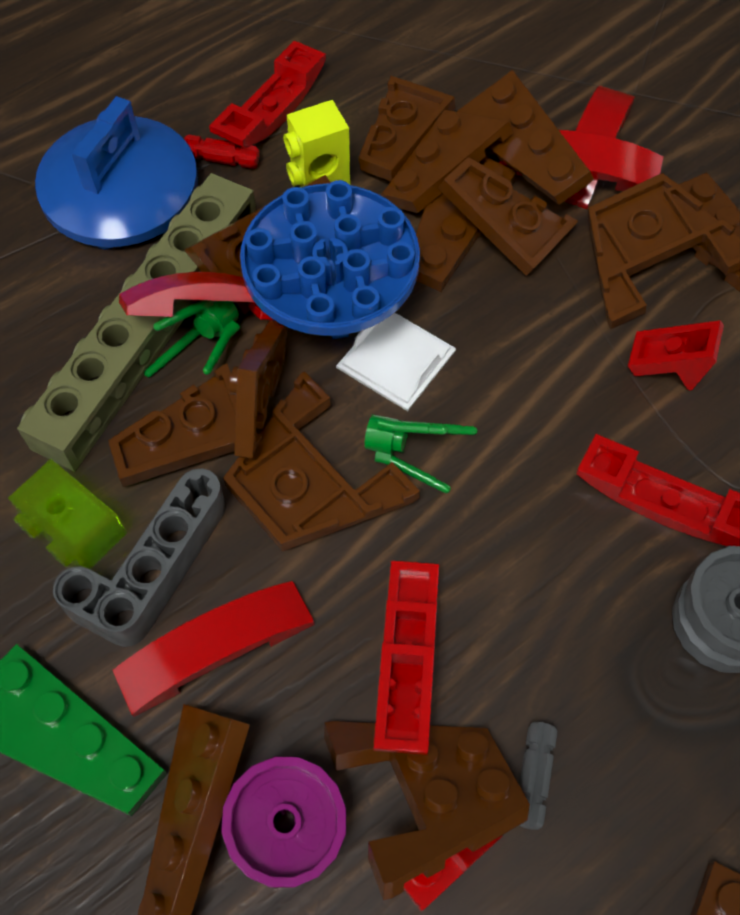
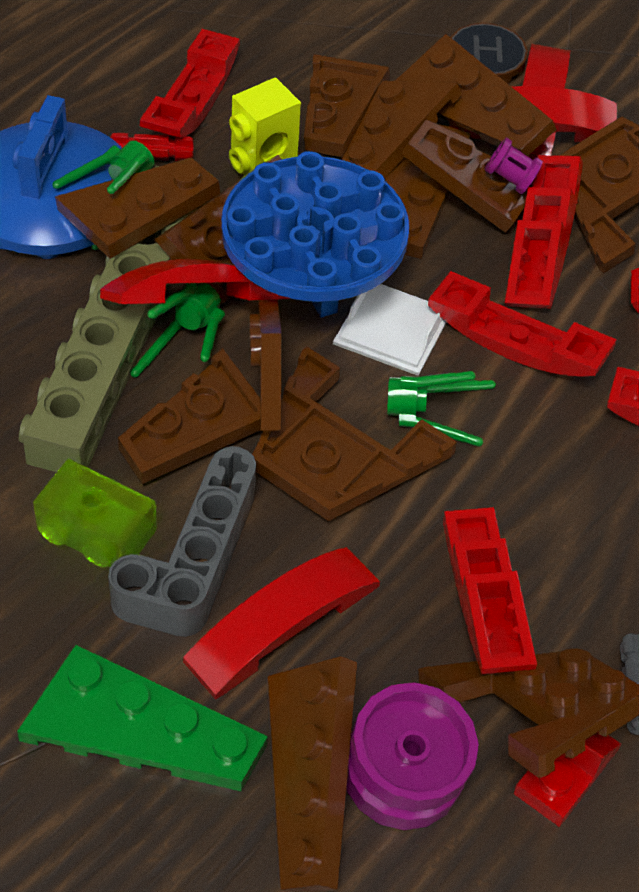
camera: 15 degrees left, 10 degrees down
(181, 211) = (140, 206): none -> reddish brown wing
(184, 171) = (123, 164): none -> green plant
(509, 384) = (517, 336): none -> red slope
(556, 215) = (513, 165): none -> magenta bush
(558, 88) = (495, 47): none -> black tile
(560, 282) = (544, 233): none -> red slope

